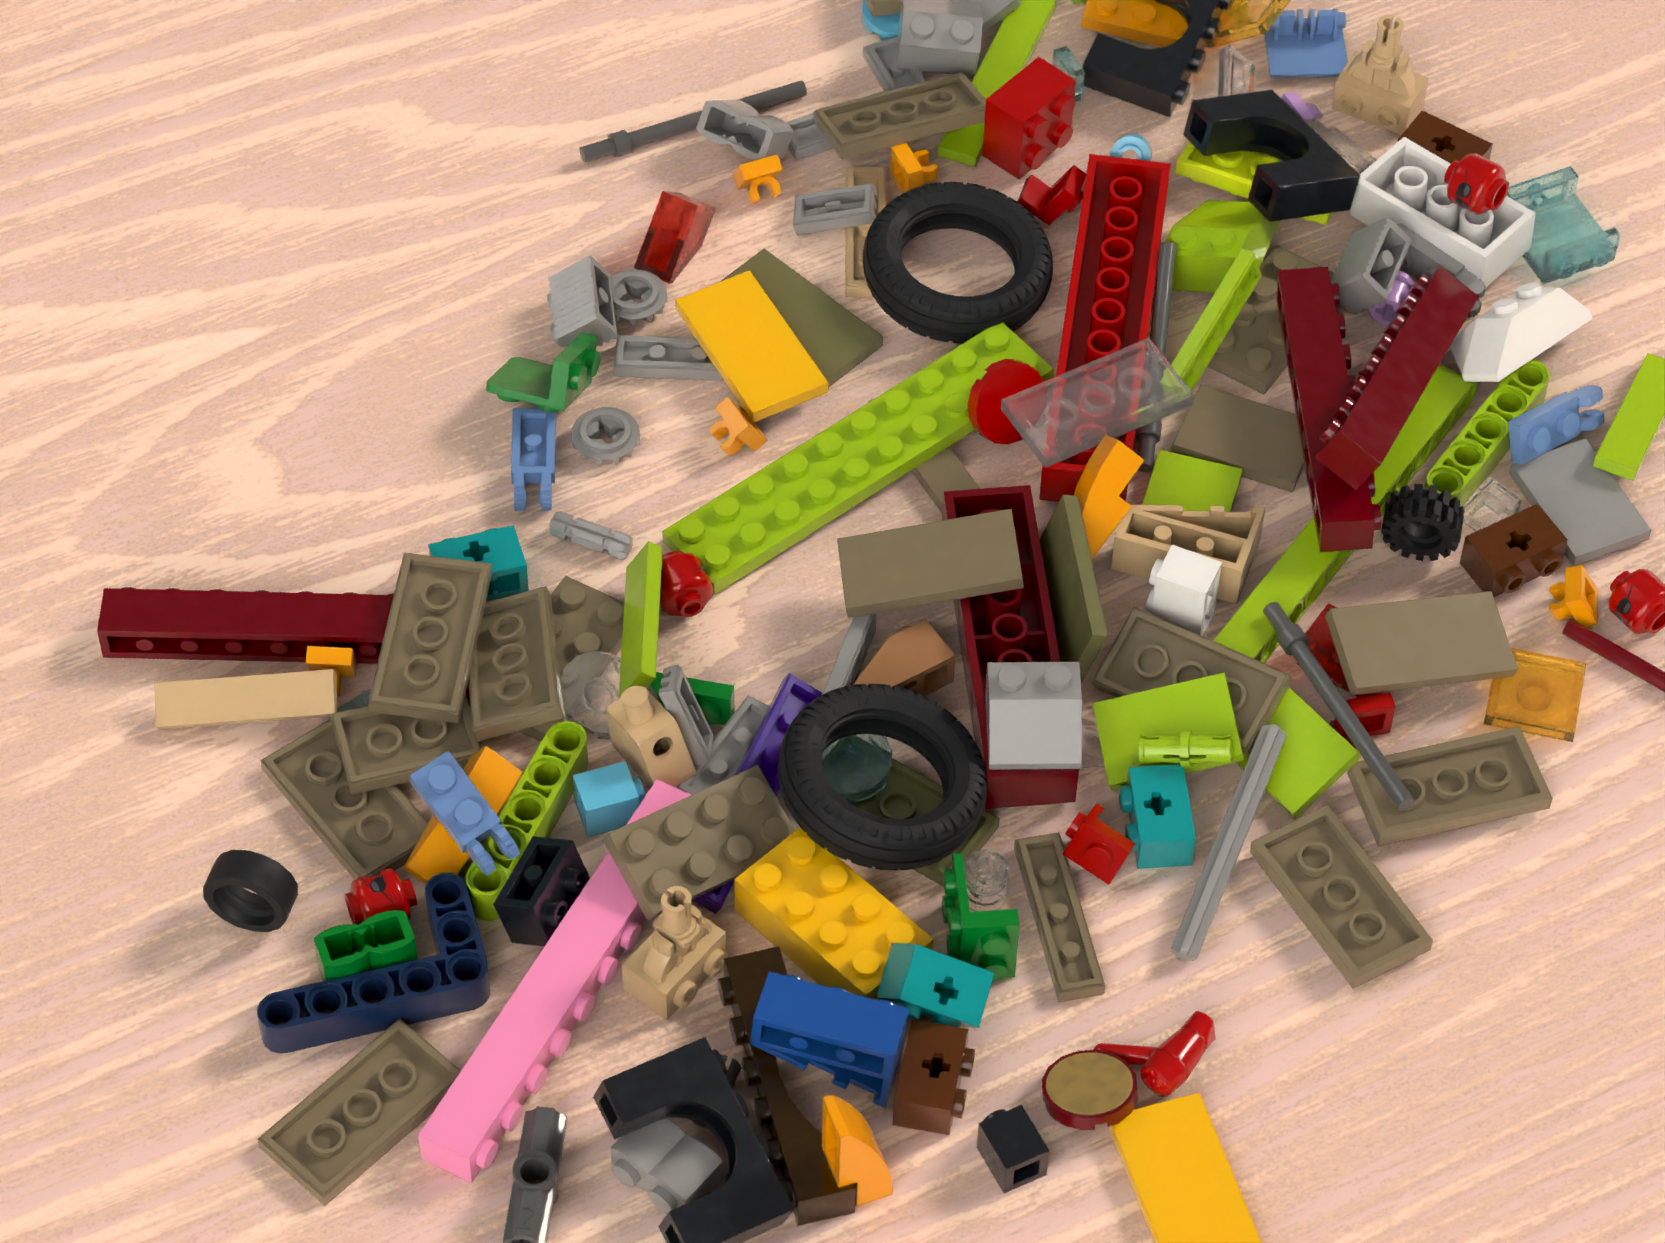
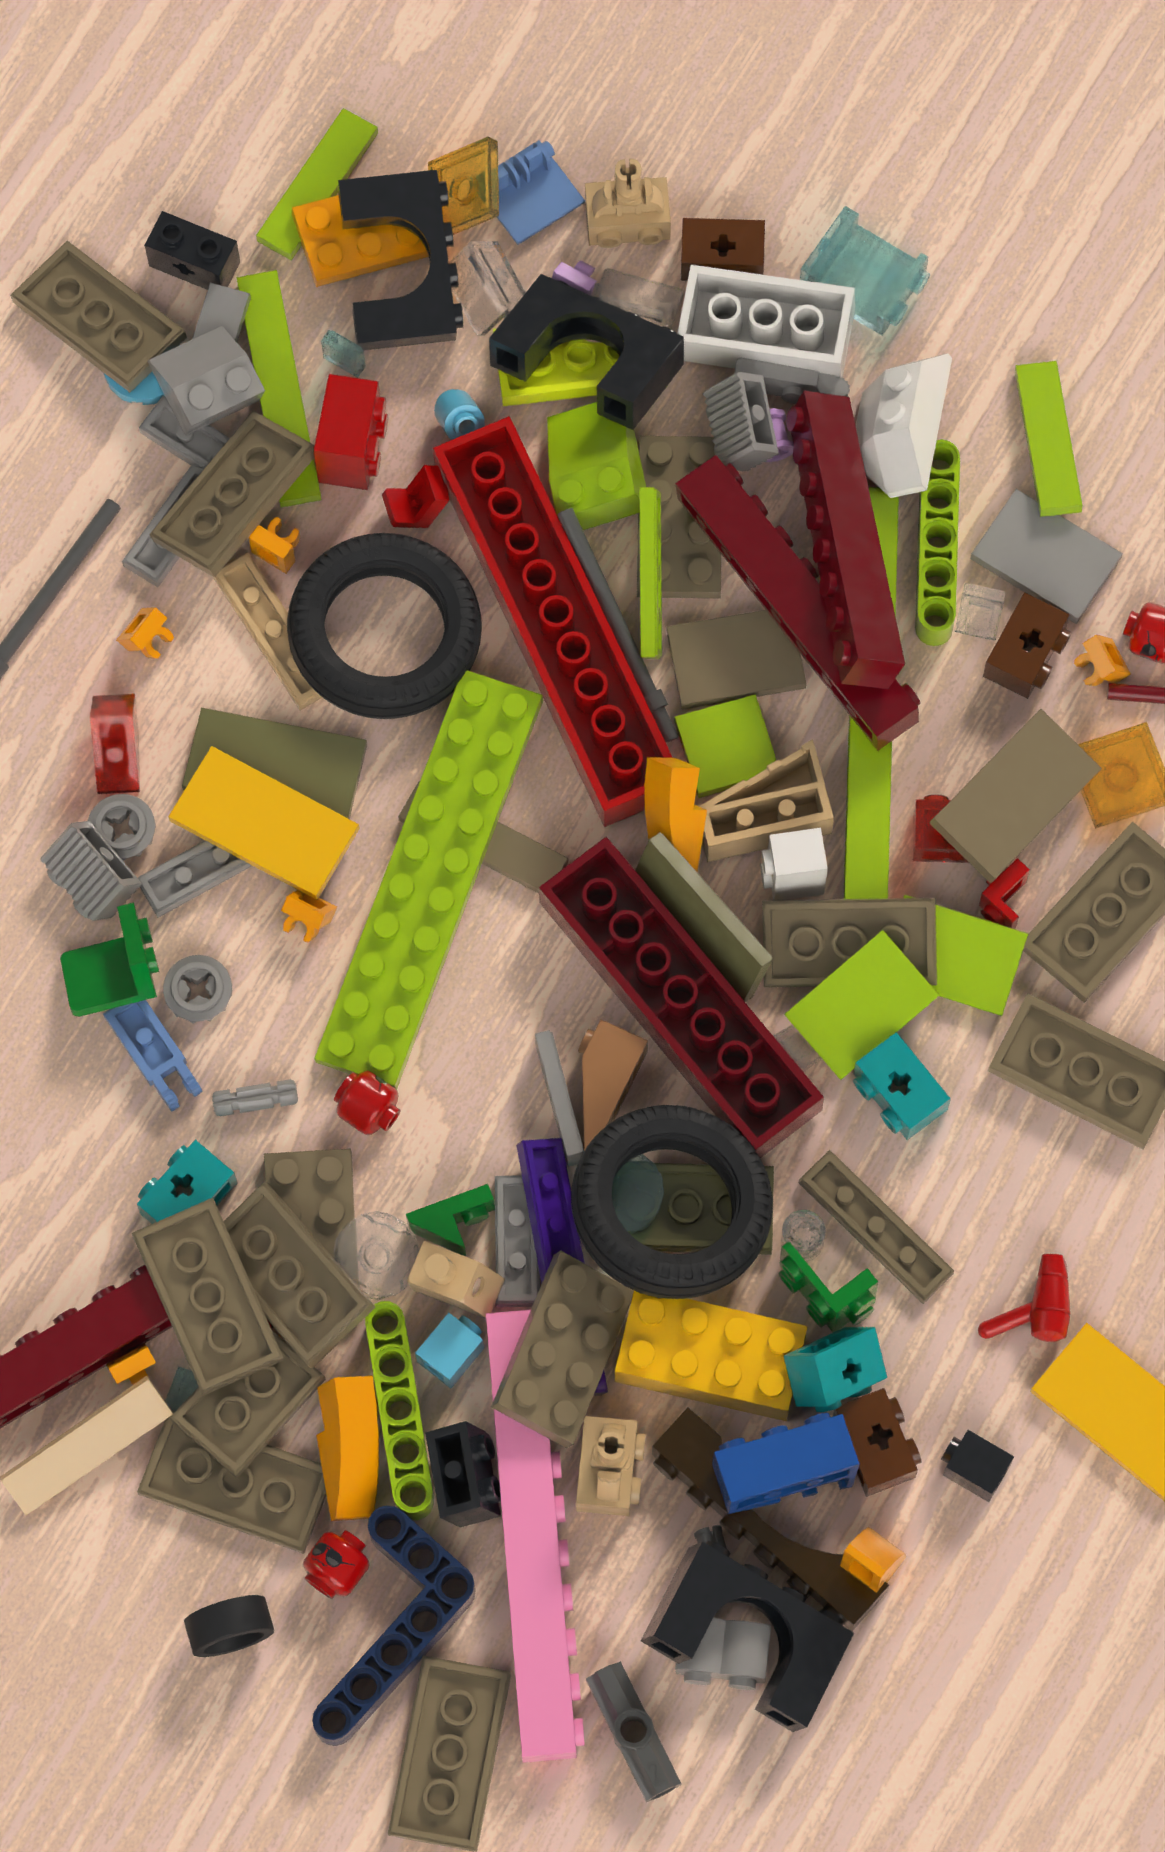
camera: 30 degrees left, 20 degrees up
(373, 944) = (370, 1611): green brick -> none
(462, 810) = (357, 1450): medium blue hinge -> none
(641, 618) = (369, 1170): lime tile -> none
(685, 709) = (472, 1240): light grey tile -> none
(744, 129) = (107, 592): light grey brick -> none
(834, 210) = (245, 640): light grey tile -> none
(929, 563) = (576, 969): dark tan tile -> none
(985, 399) = (525, 753): red tile -> none
(1034, 715) = (763, 1075): light grey slope -> none
(1089, 1089) = (1003, 1374): pearl gold tile -> none
(1096, 400) = (610, 718): clear tile -> none
(1097, 845) = (869, 1148): red bracket -> none
(1186, 748) = (893, 1019): lime pin -> none
(1228, 843) = (972, 1078): light grey axle -> none
(1295, 643) = (913, 857): dark grey bar -> none
(1441, 524) = (942, 666): black tyre -> none
(1476, 183) = (791, 292): red head -> none
(1554, 423) = (986, 492): medium blue hinge -> none

